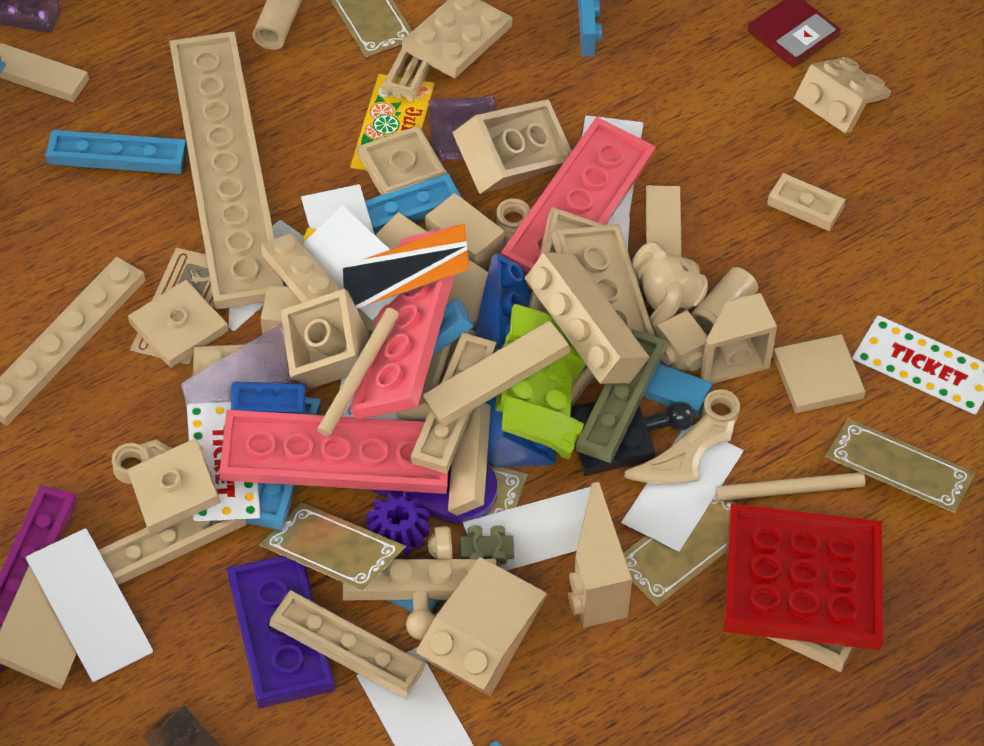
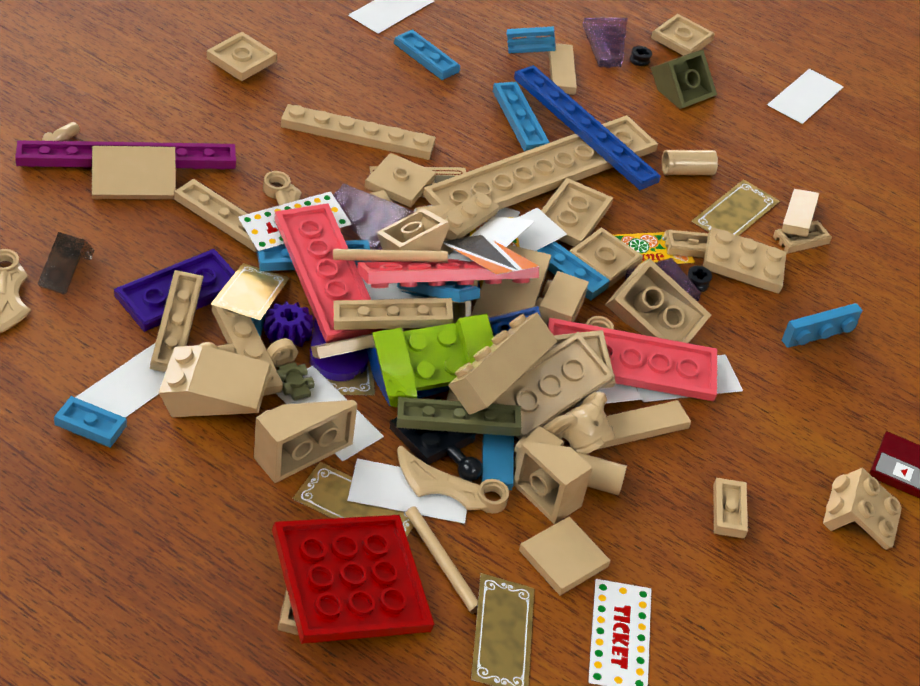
camera: 60 degrees right, 10 degrees down
(89, 605) = (153, 187): white sticker -> none
(173, 486) = (259, 198): tan plate -> none
(174, 90) = (587, 128): none -> blue tile
(268, 397) = (353, 227): blue plate -> none
(313, 160) = (576, 210): none -> tan plate
(465, 81) = (704, 277): none -> black bush
(496, 373) = (420, 319): tan tile -> none

